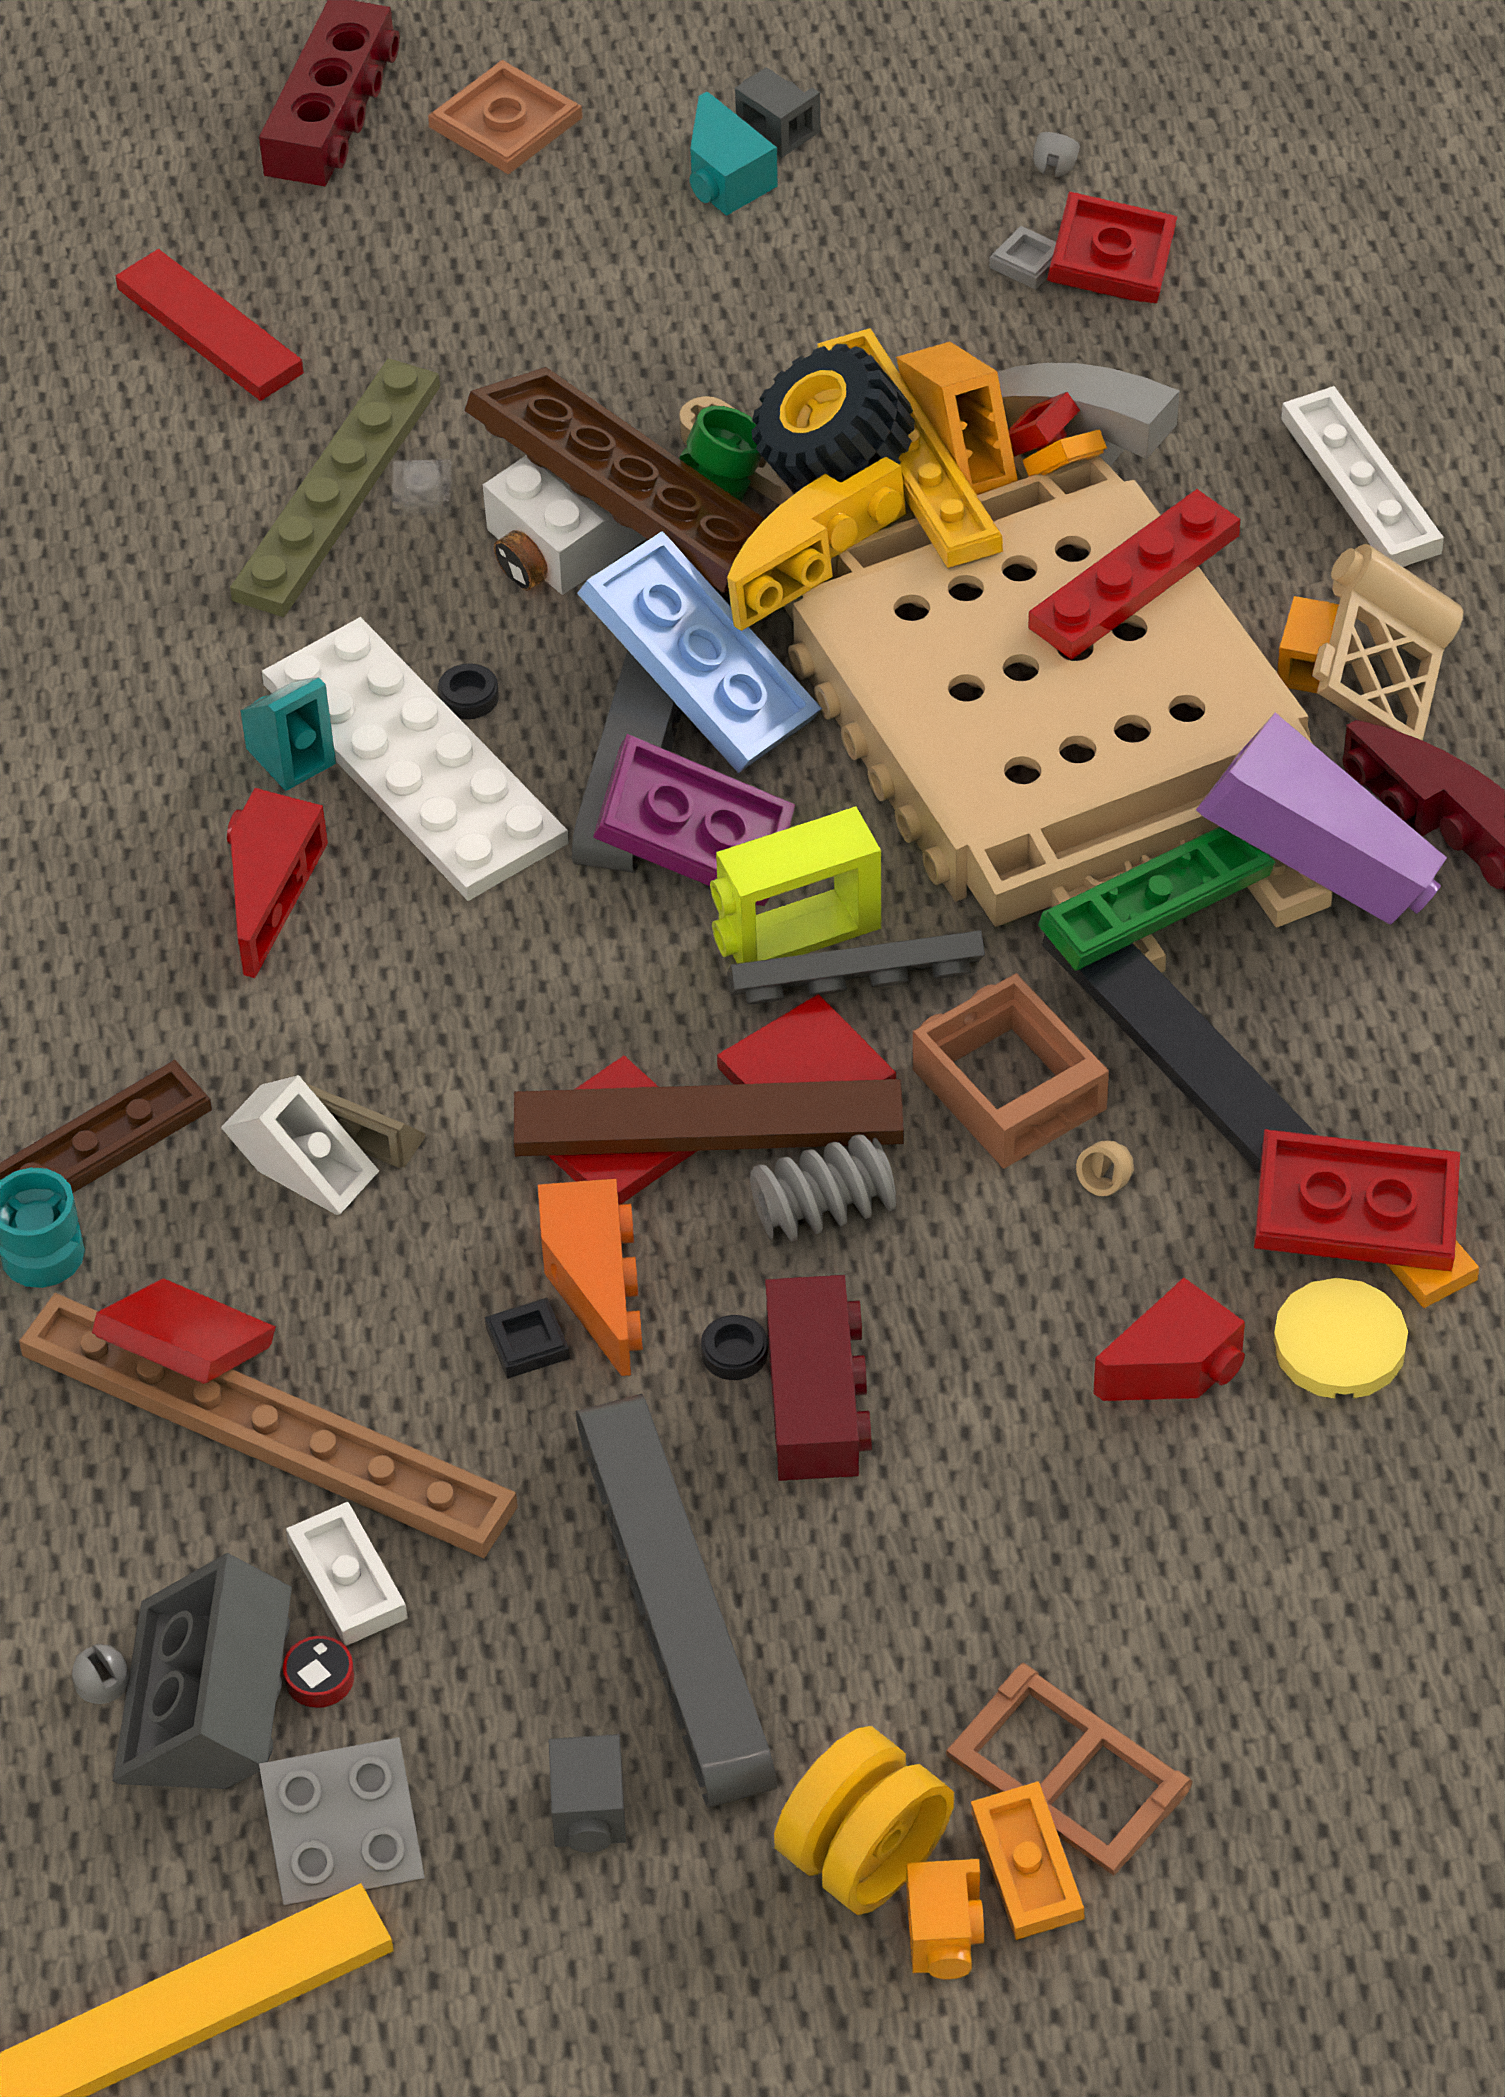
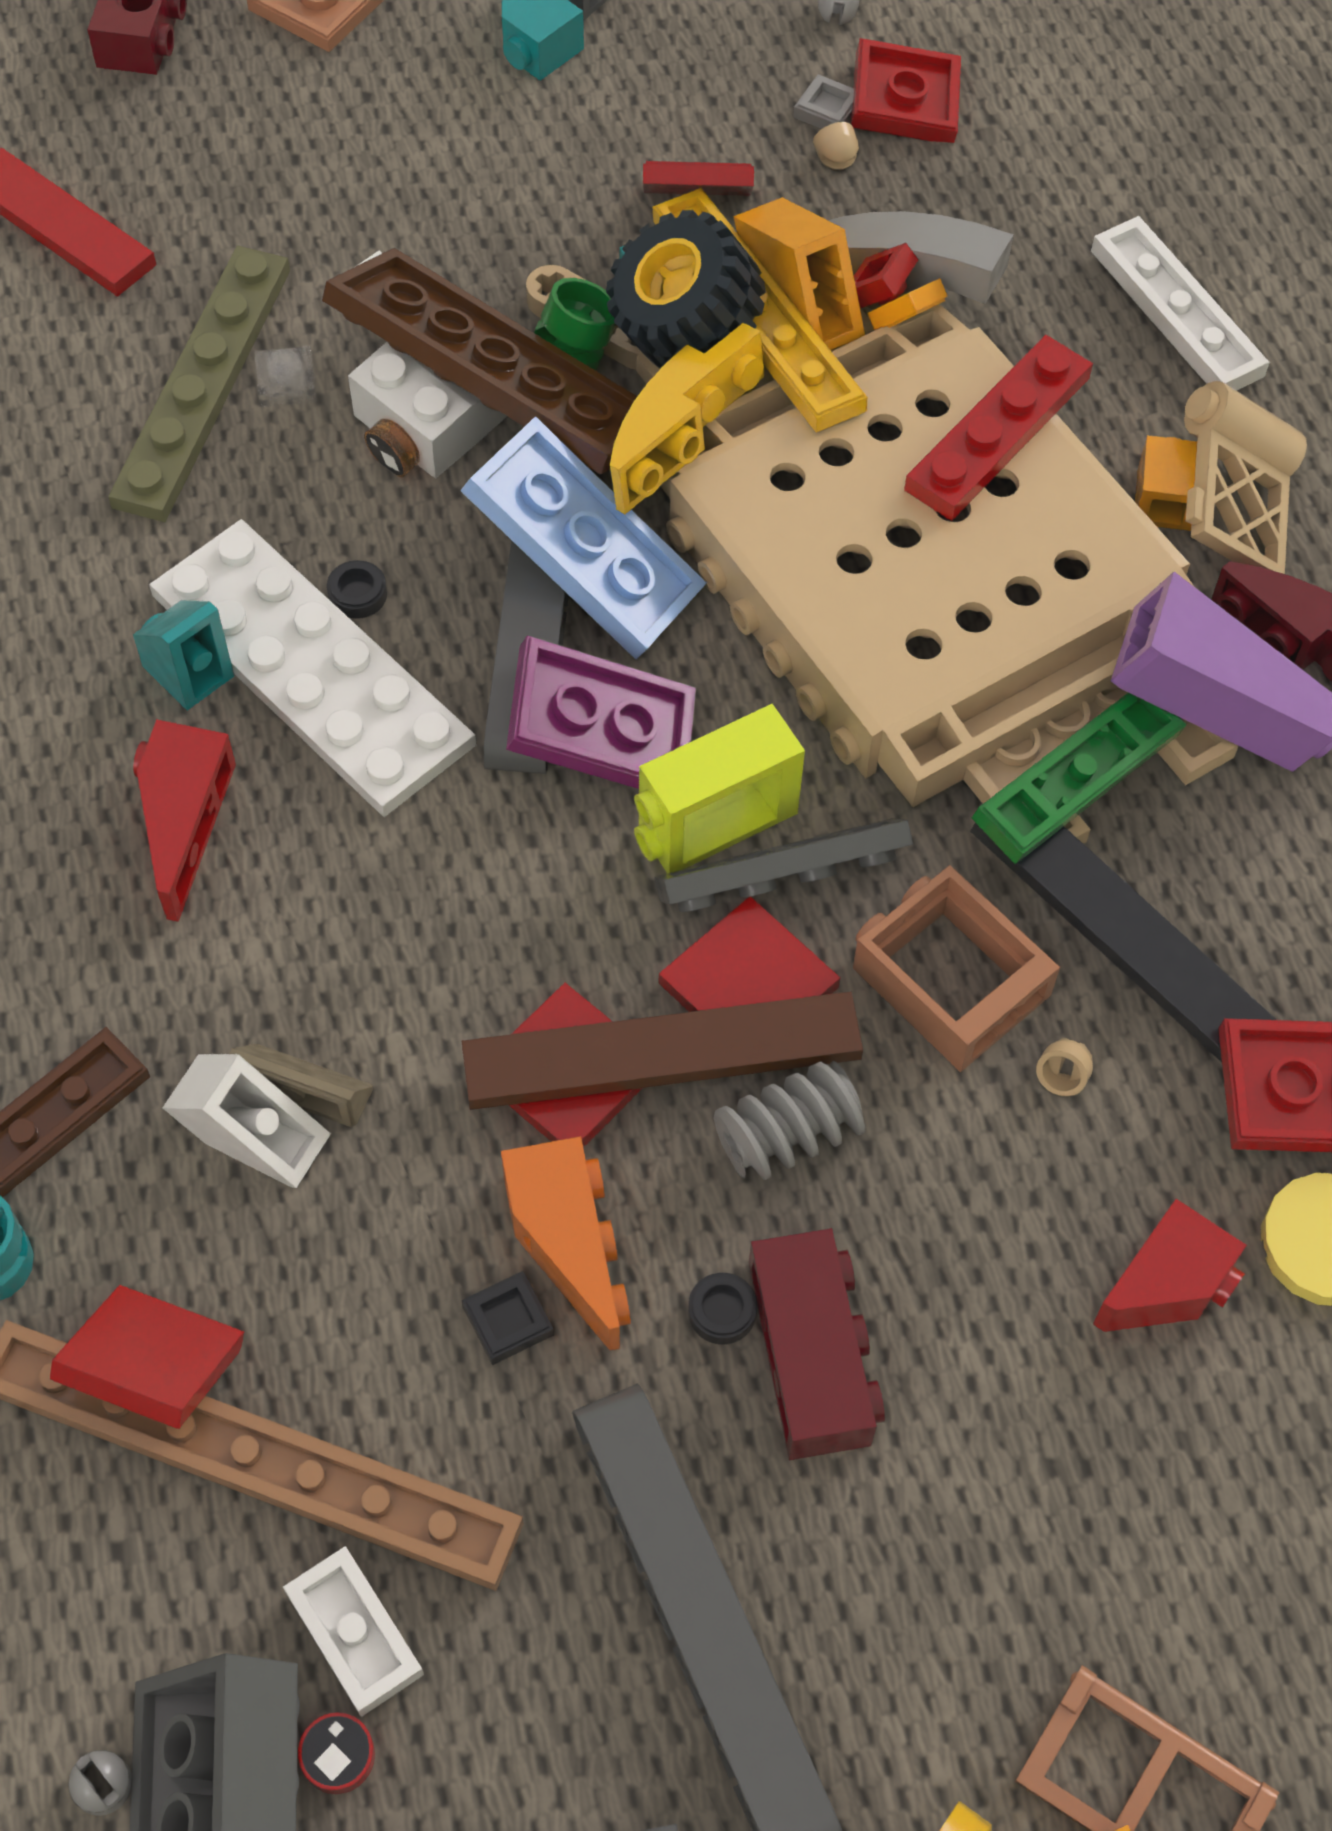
camera: 10 degrees left, 10 degrees up
(884, 319) = (684, 177): none -> red tile
(1028, 298) = (836, 145): none -> tan hinge

